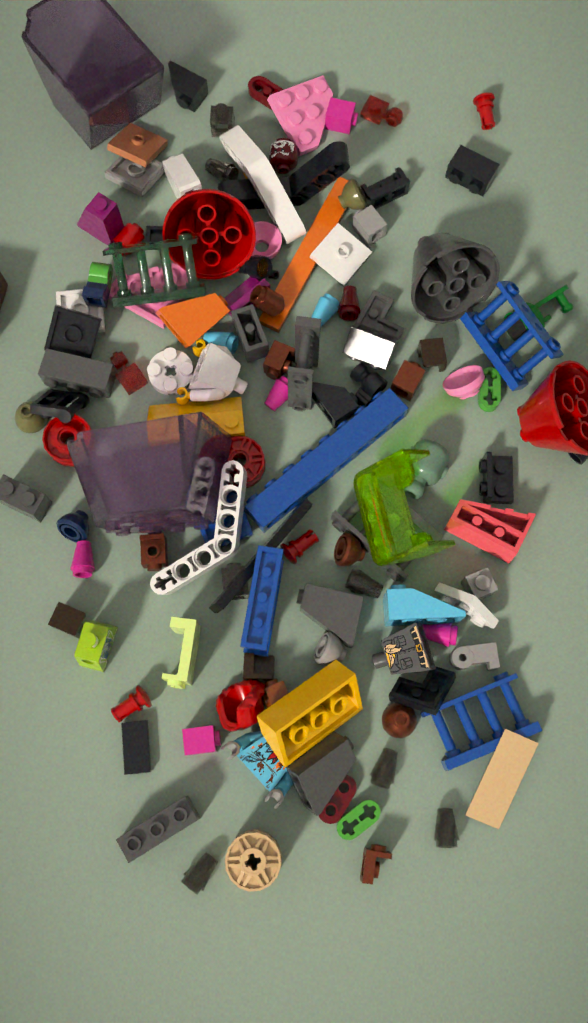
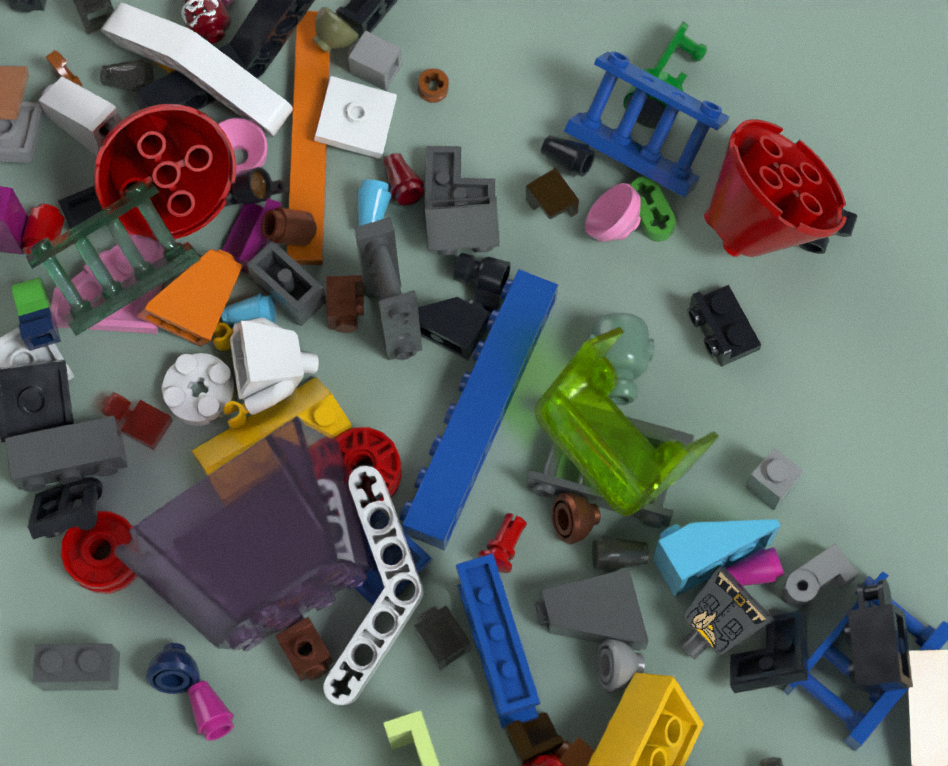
camera: 25 degrees left, 5 degrees down
(29, 422) = (23, 552): olive brick -> none
(185, 148) = (59, 69): none -> dark orange tile
(247, 571) = (456, 604): black tile -> none
(278, 394) = (368, 347): dark pink cone -> none
(396, 249) = (423, 87): none -> dark orange bush
(399, 720) = (760, 714): copper brick -> none
(407, 380) = (536, 246): copper brick -> none
(451, 276) = (525, 80): dark grey cone -> none
(456, 334) = (568, 154): none -> black cone
(470, 603) = (789, 512): white plate -> none
(490, 528) = (749, 395): coral wedge -> none
(490, 714) = (878, 642): none -> black brick

